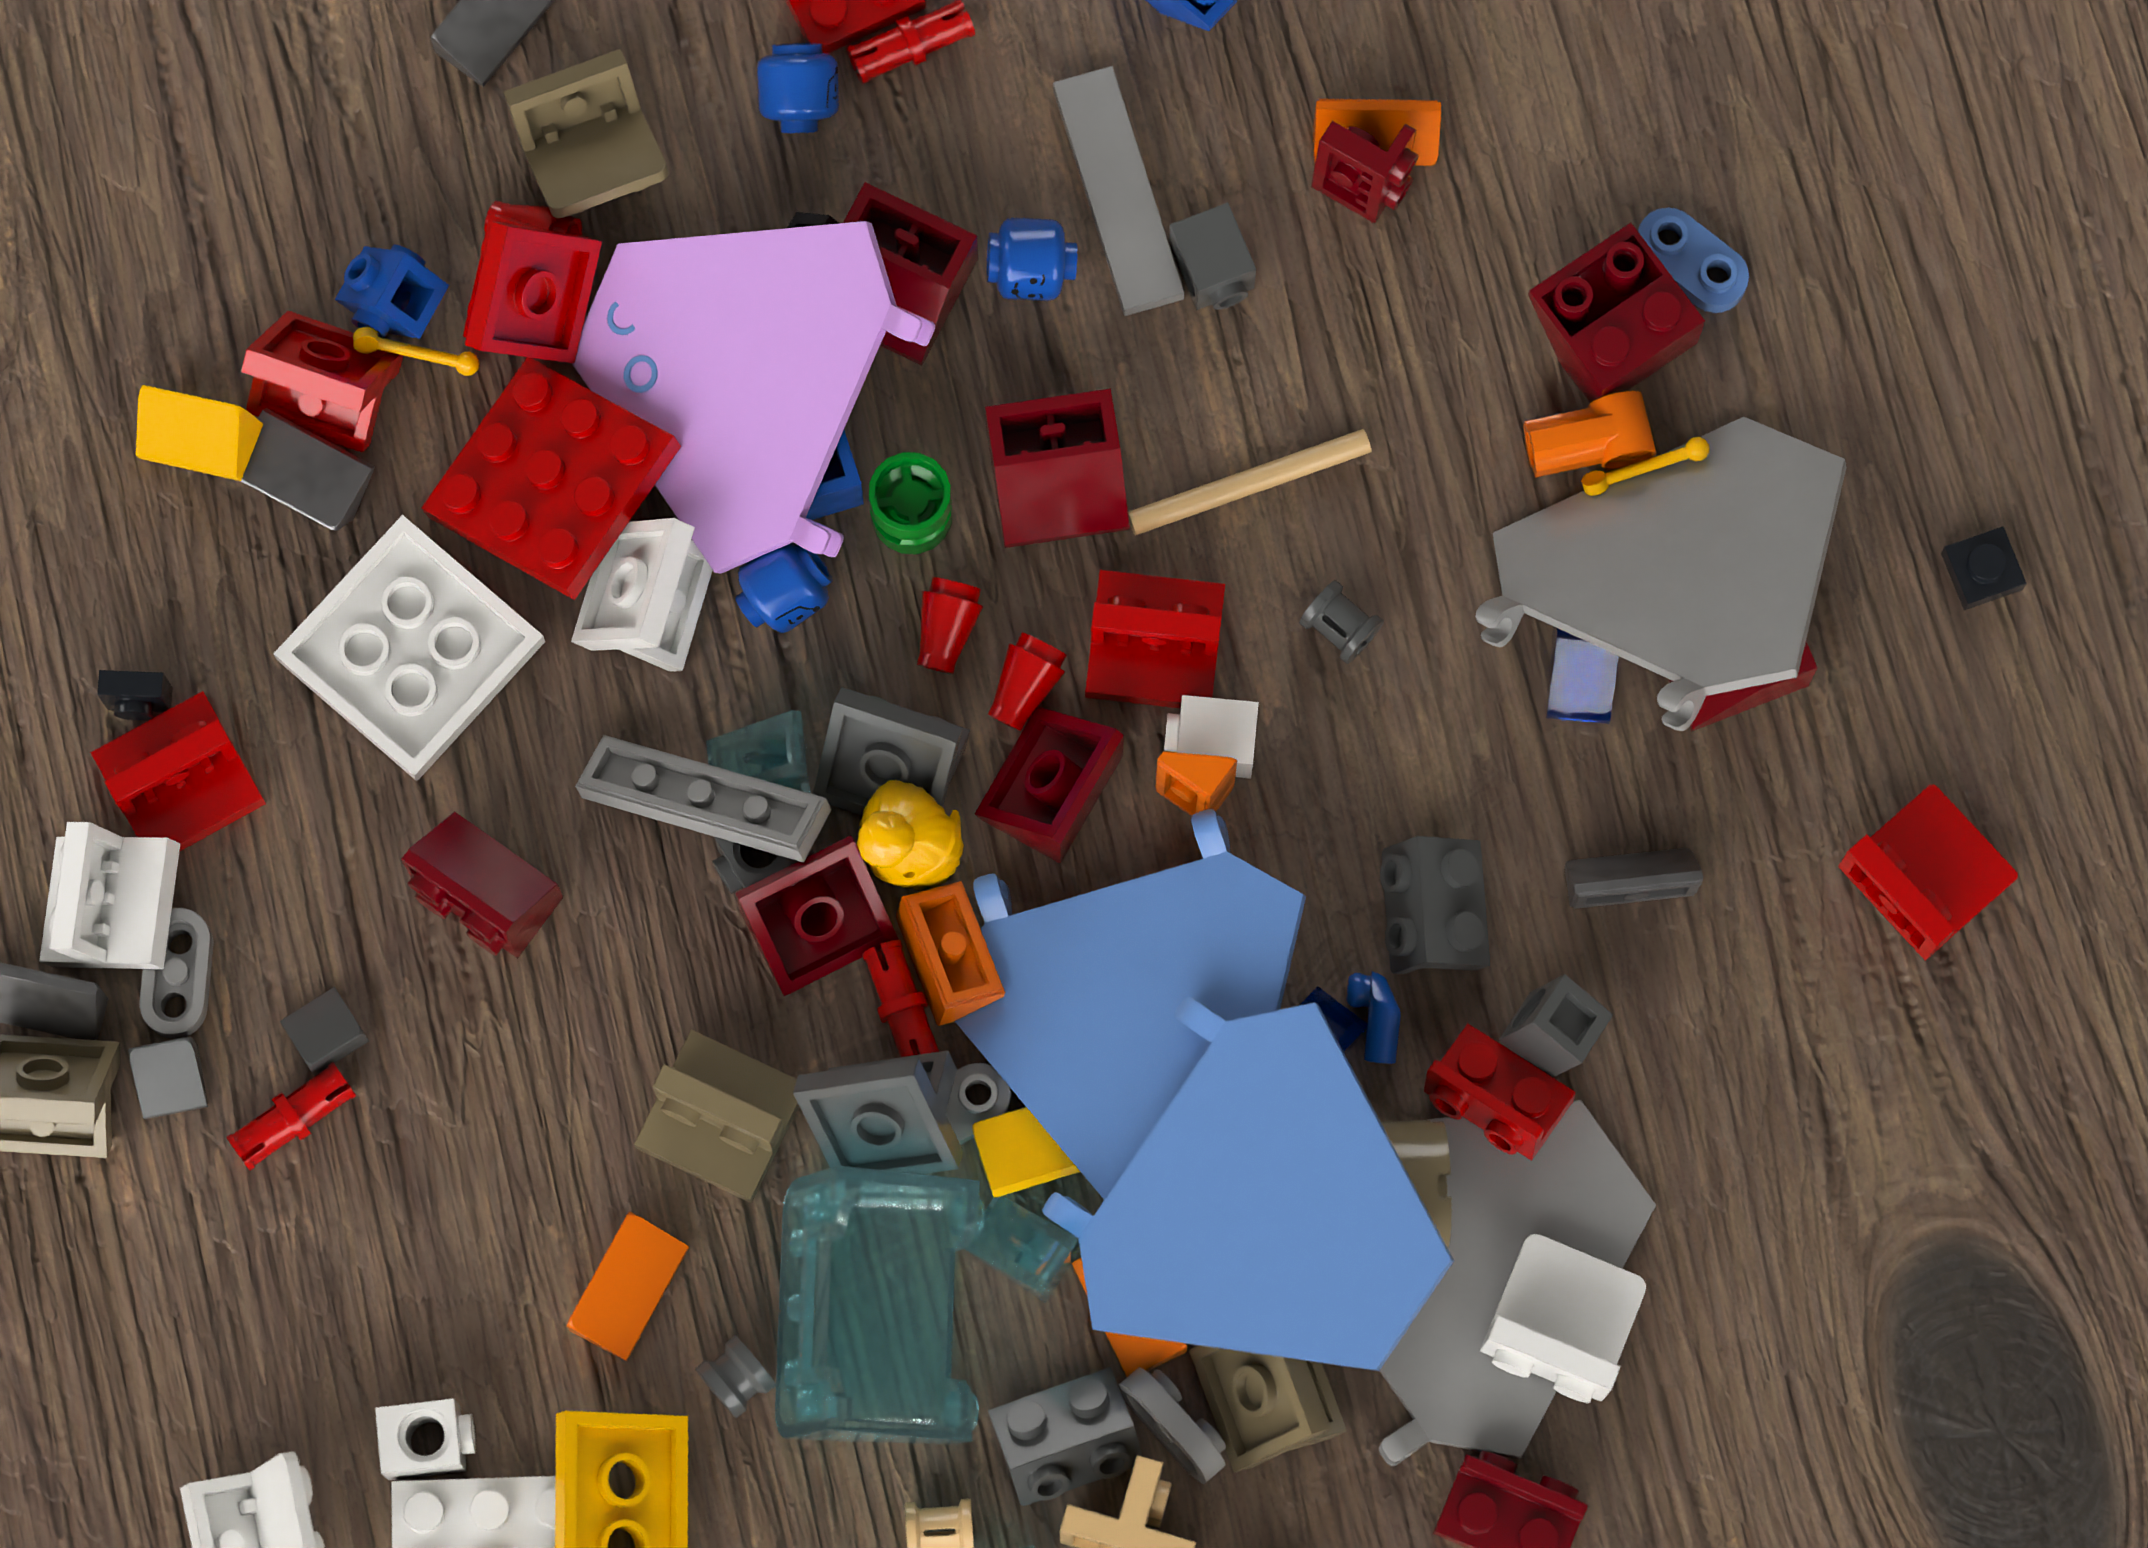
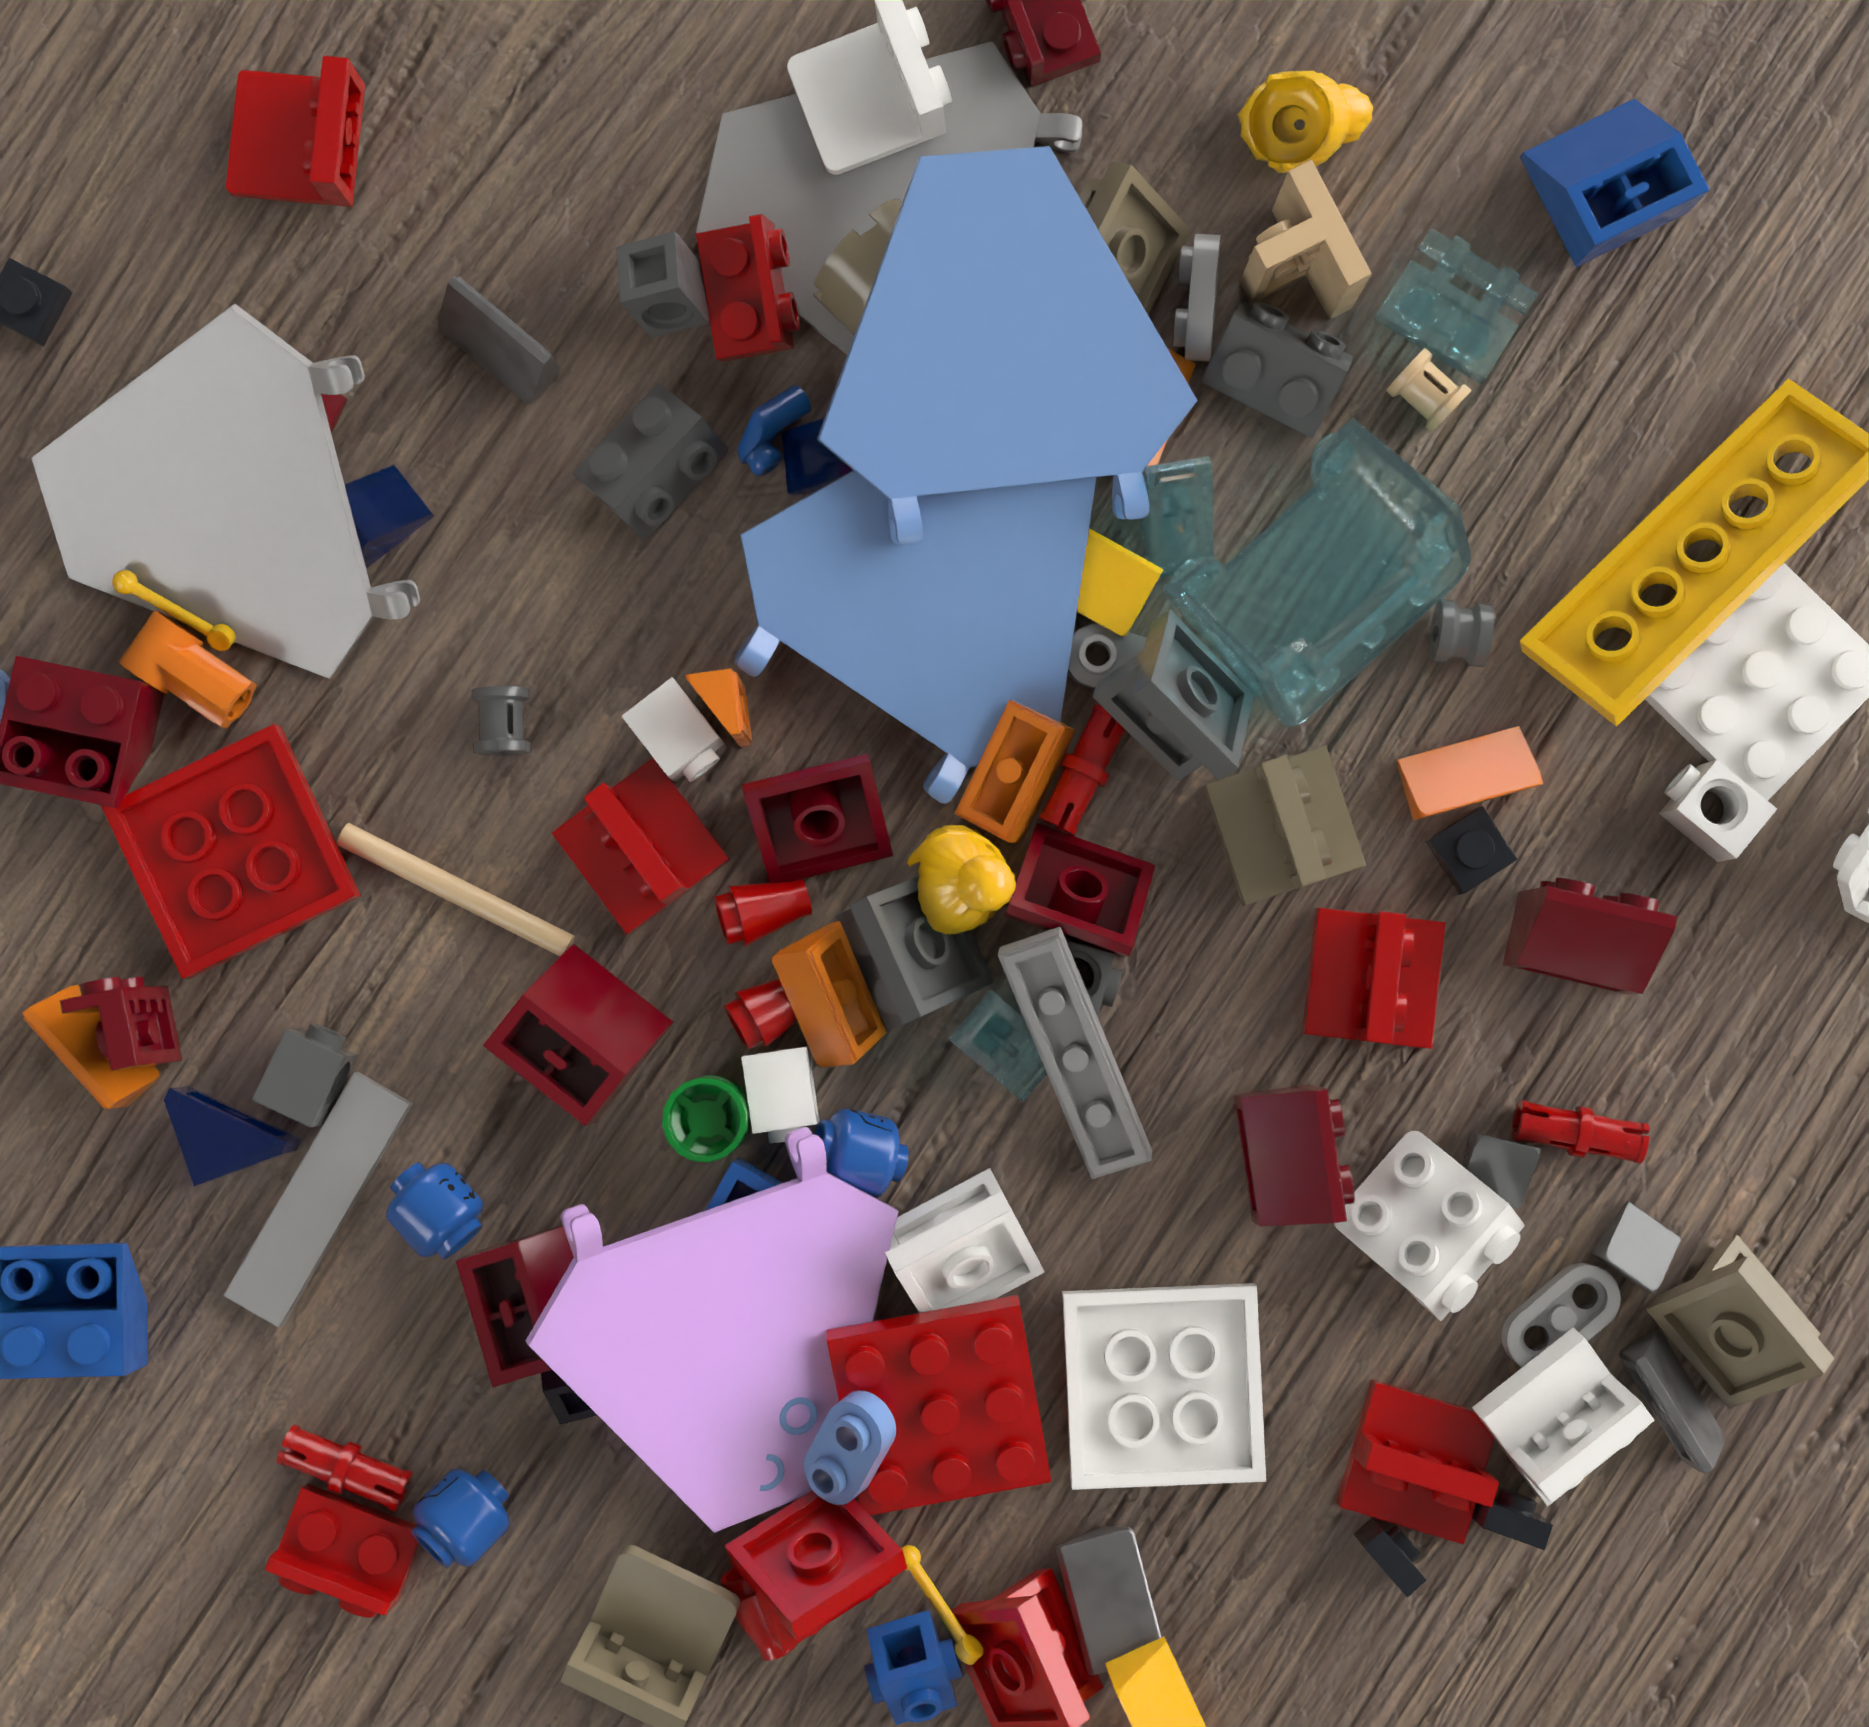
camera: 130 degrees left, 10 degrees up
(75, 800) = (1515, 1518): none -> black plate
(333, 940) = (1431, 1224): none -> white bracket
(427, 1247) = (1588, 938): none -> dark red slope
(546, 1073) = (1373, 977): none -> red bracket
(569, 1235) = (1471, 850): none -> black plate
(584, 384) = (849, 1447): none -> medium blue plate
(880, 573) = (780, 1091): none -> white brick
(914, 668) = (829, 996): none -> orange slope
(1224, 163) = (221, 1138): none -> clear blue slope
(1426, 351) = (231, 851): none -> red plate

